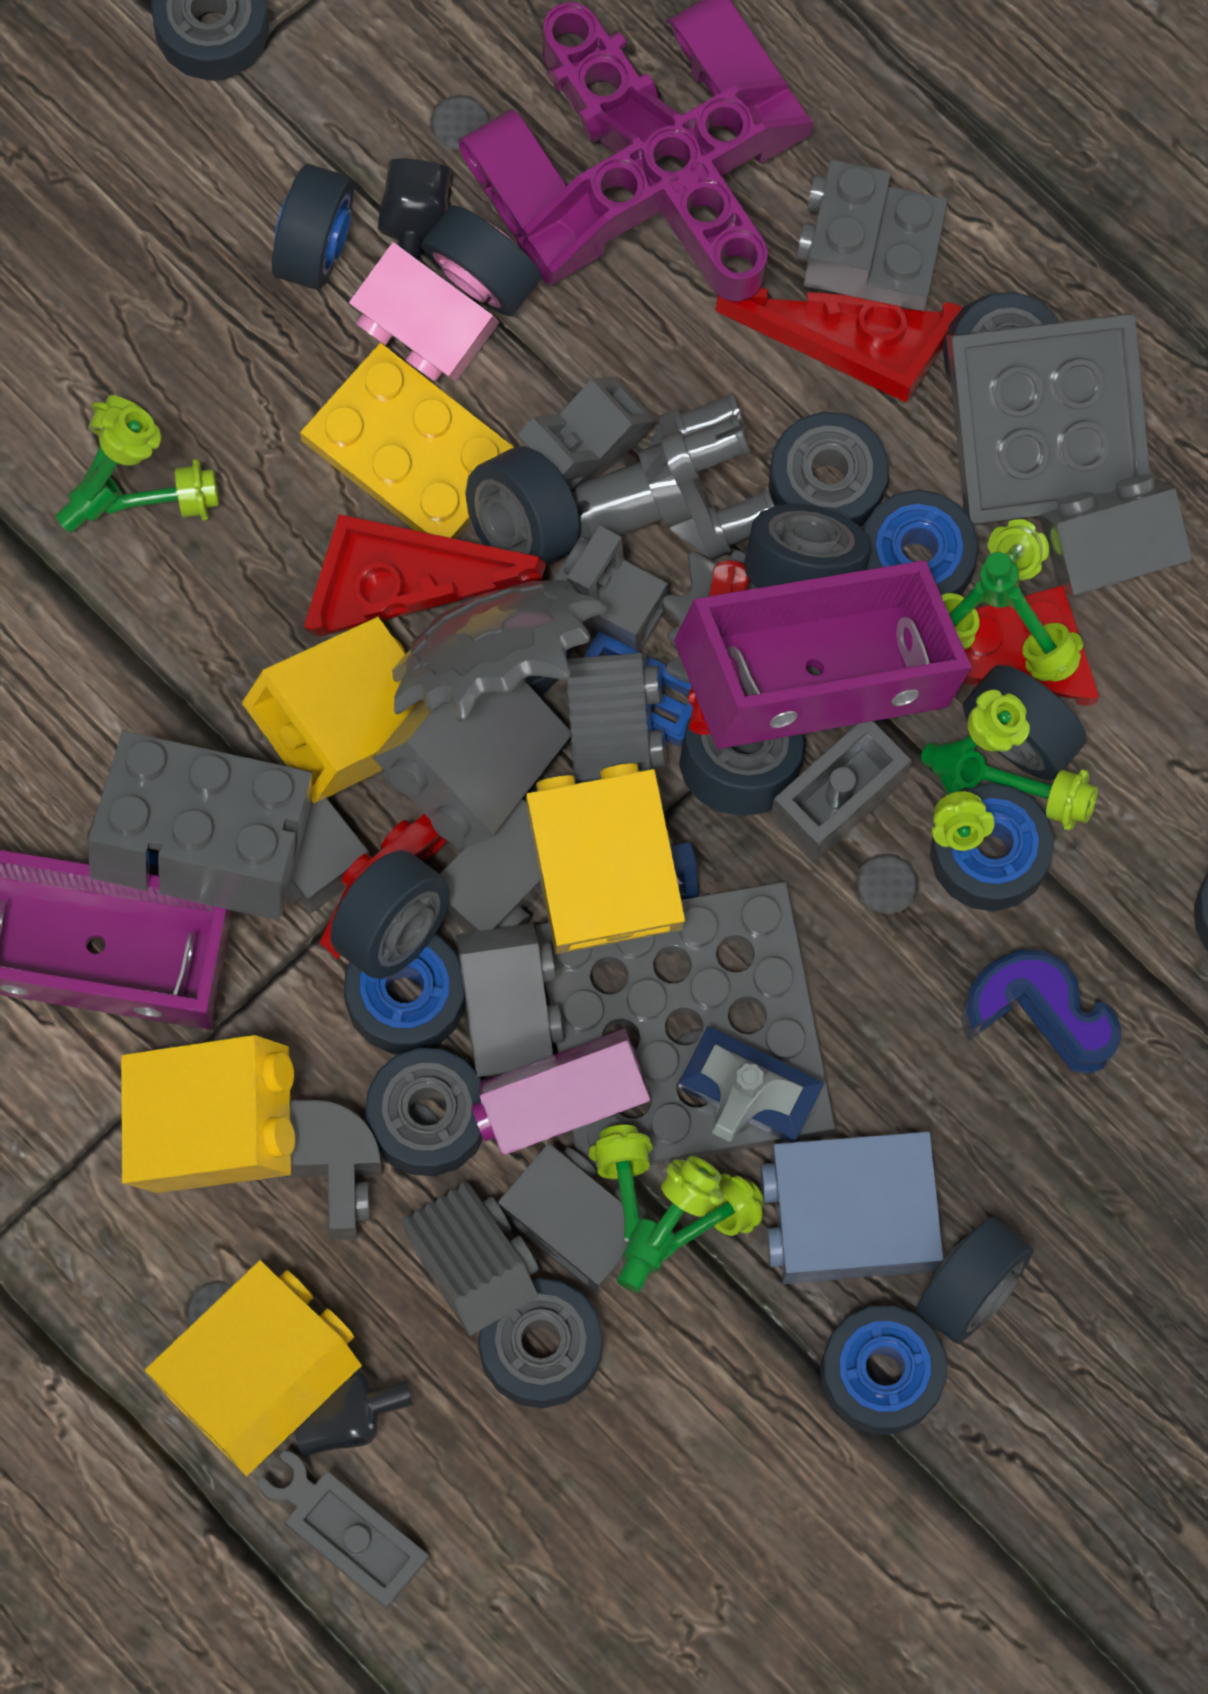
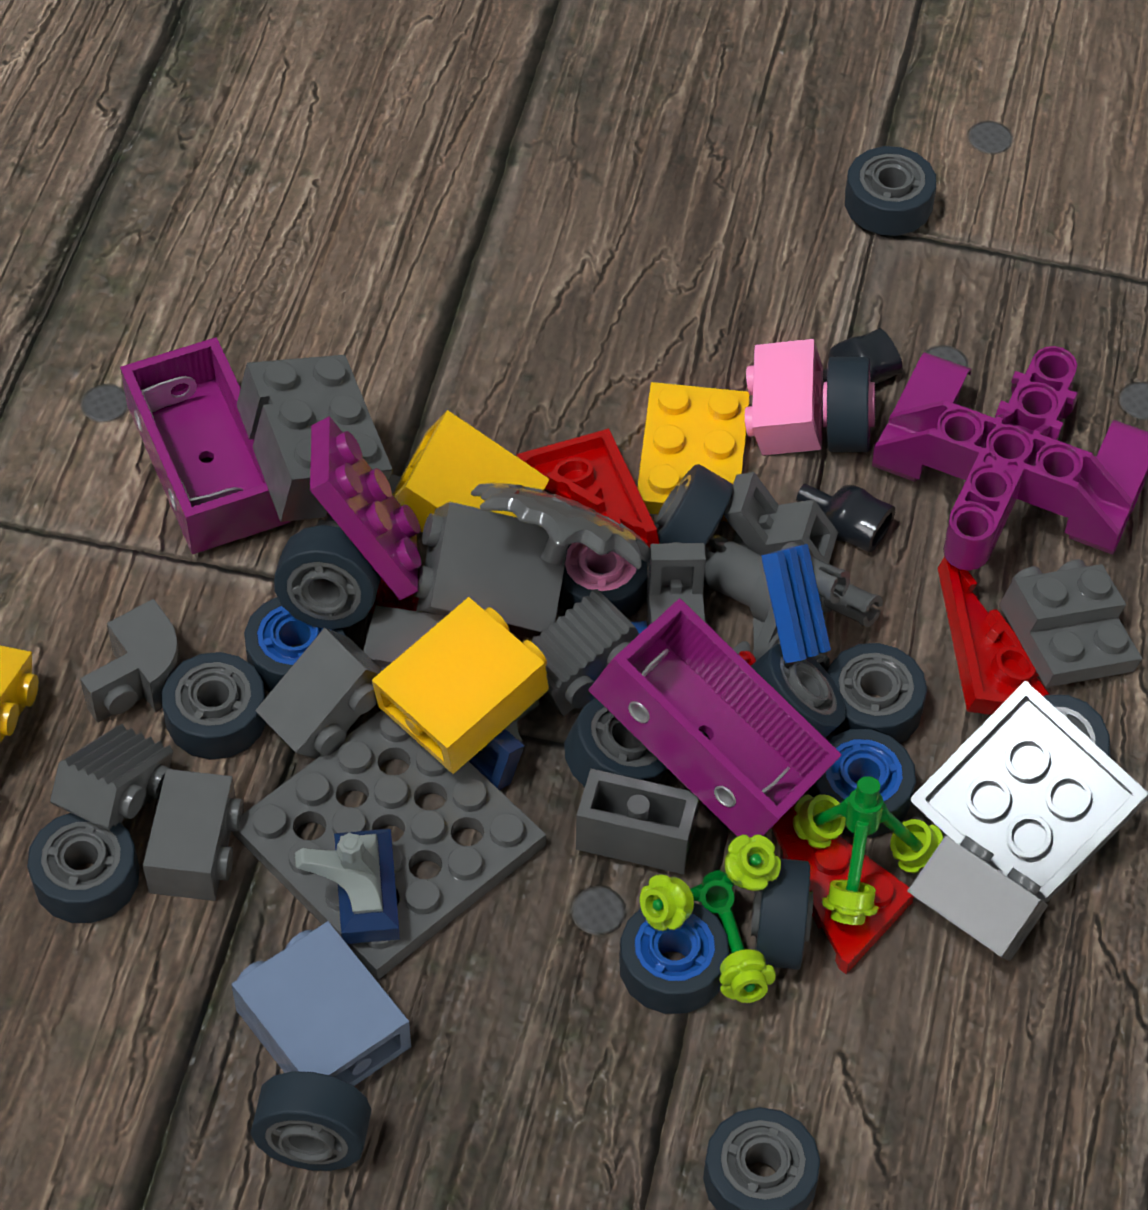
camera: 60 degrees right, 20 degrees down
(127, 438) = (550, 258): plant -> none
(206, 1114) = (118, 565): yellow brick -> none
(312, 226) = (793, 303): black wheel -> none
(363, 829) = (364, 506): none -> magenta plate
(561, 1092) = (275, 760): brick -> none
(596, 348) = (854, 514): none -> black piece
(691, 1186) = (241, 858): plant -> none
(737, 488) = (796, 603): none -> blue tile
(889, 1333) = (197, 1074): wheel -> none
(1051, 1000) = (583, 1061): dark blue animal -> none

